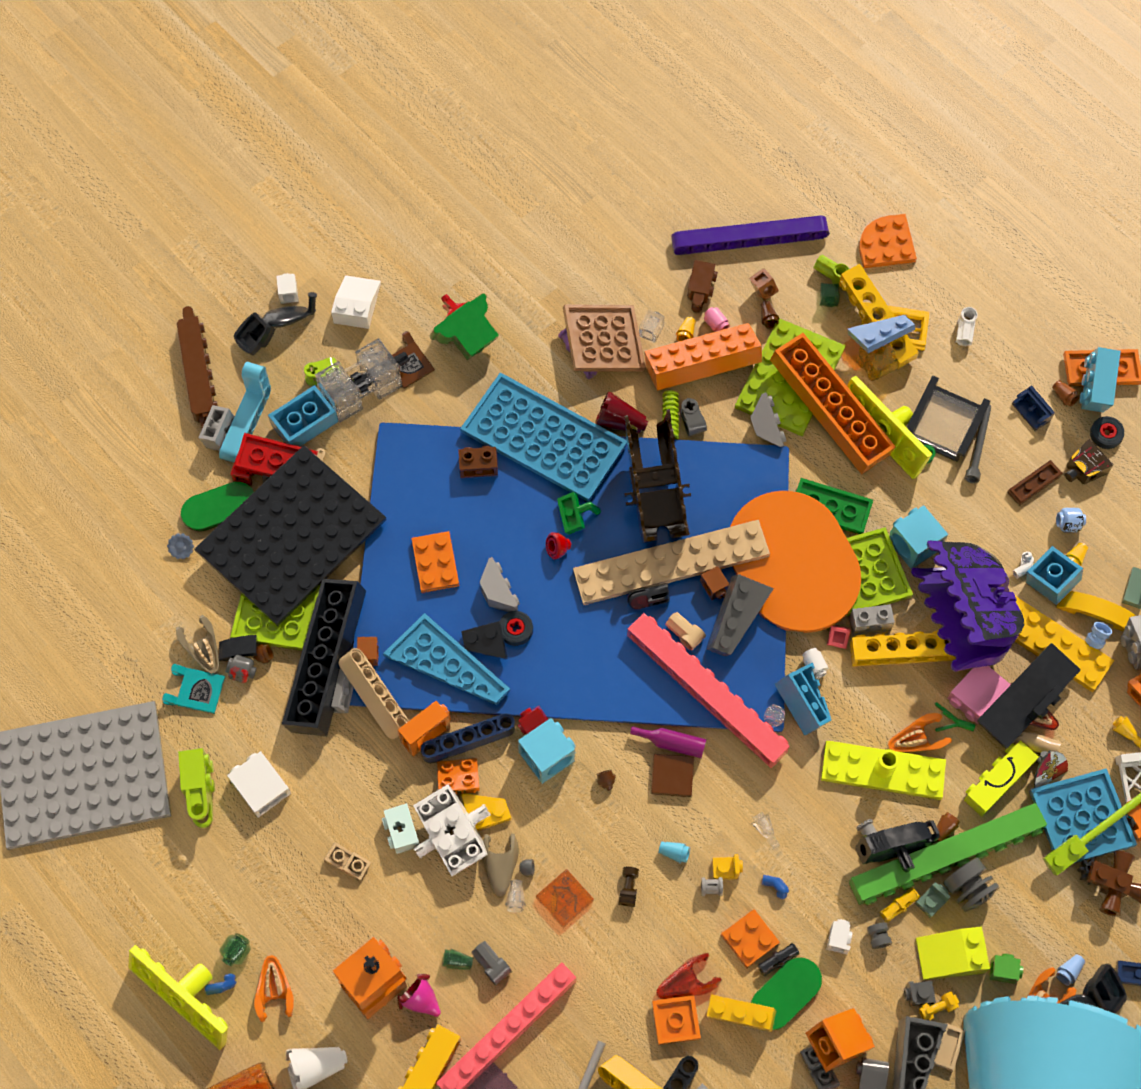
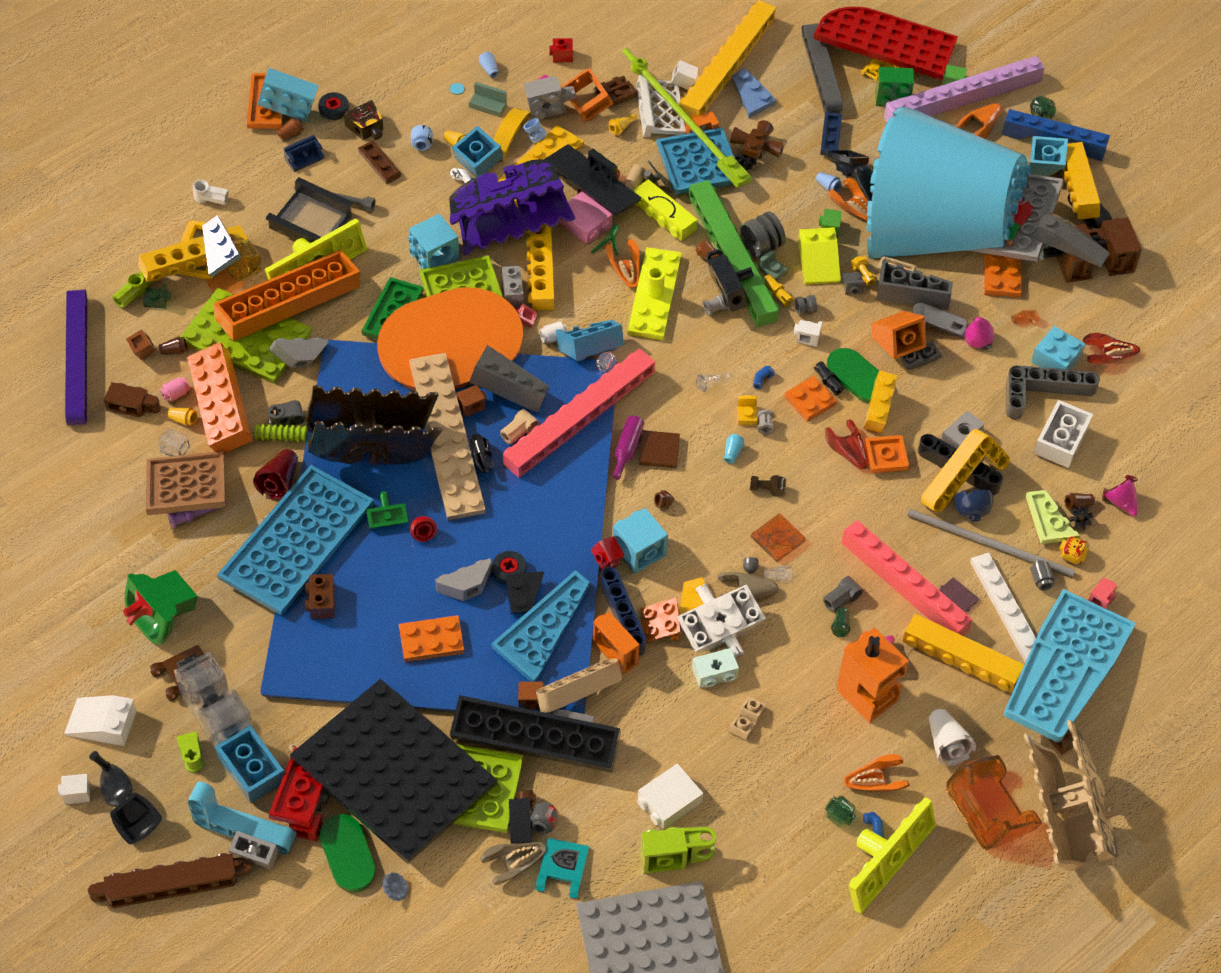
camera: 90 degrees left, 10 degrees down
(887, 242) = (102, 248): orange plate -> none

